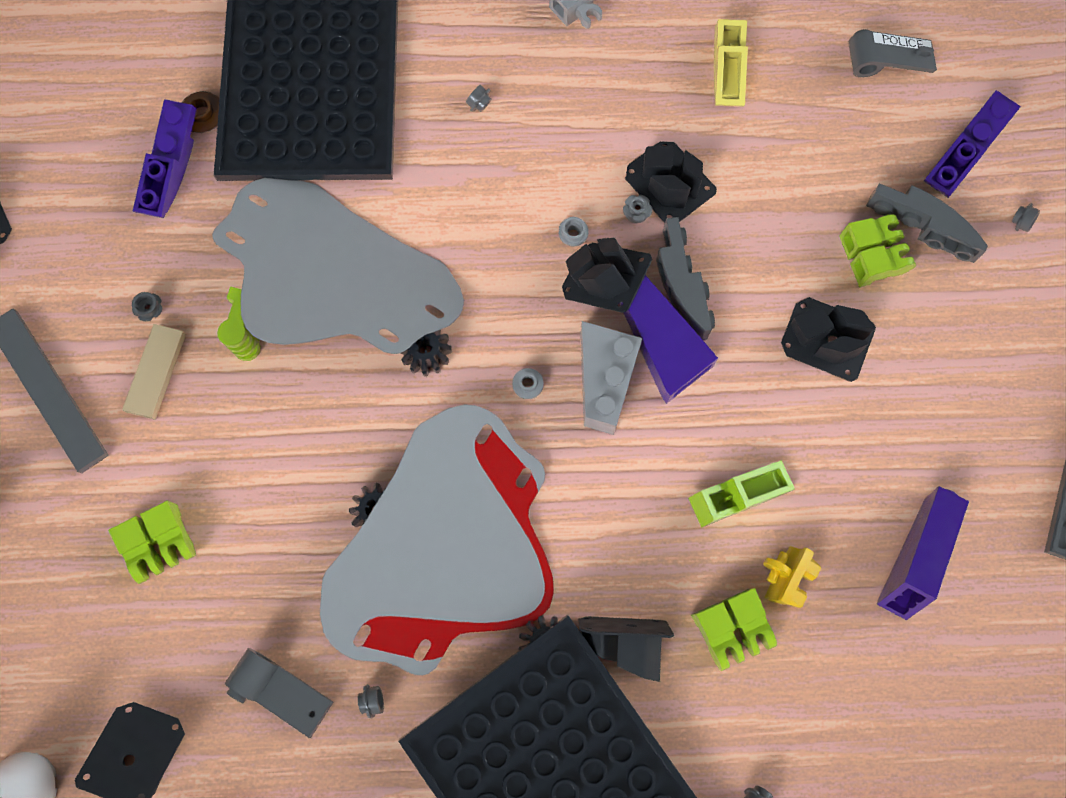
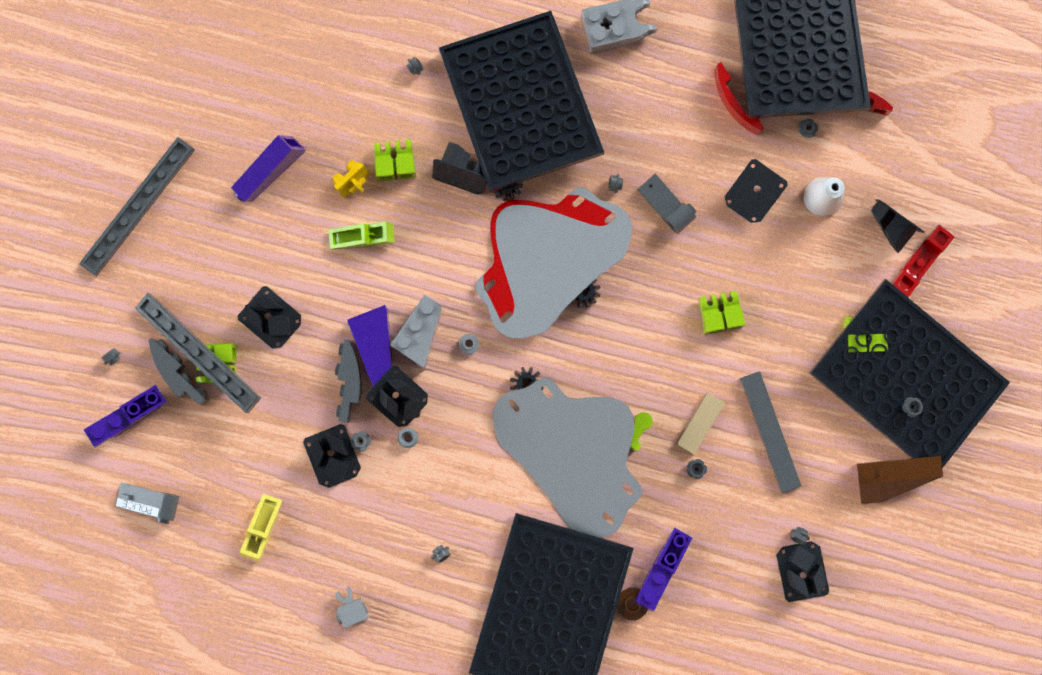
camera: 170 degrees left, 10 degrees up
(912, 250) = (198, 353): none -> dark grey tile

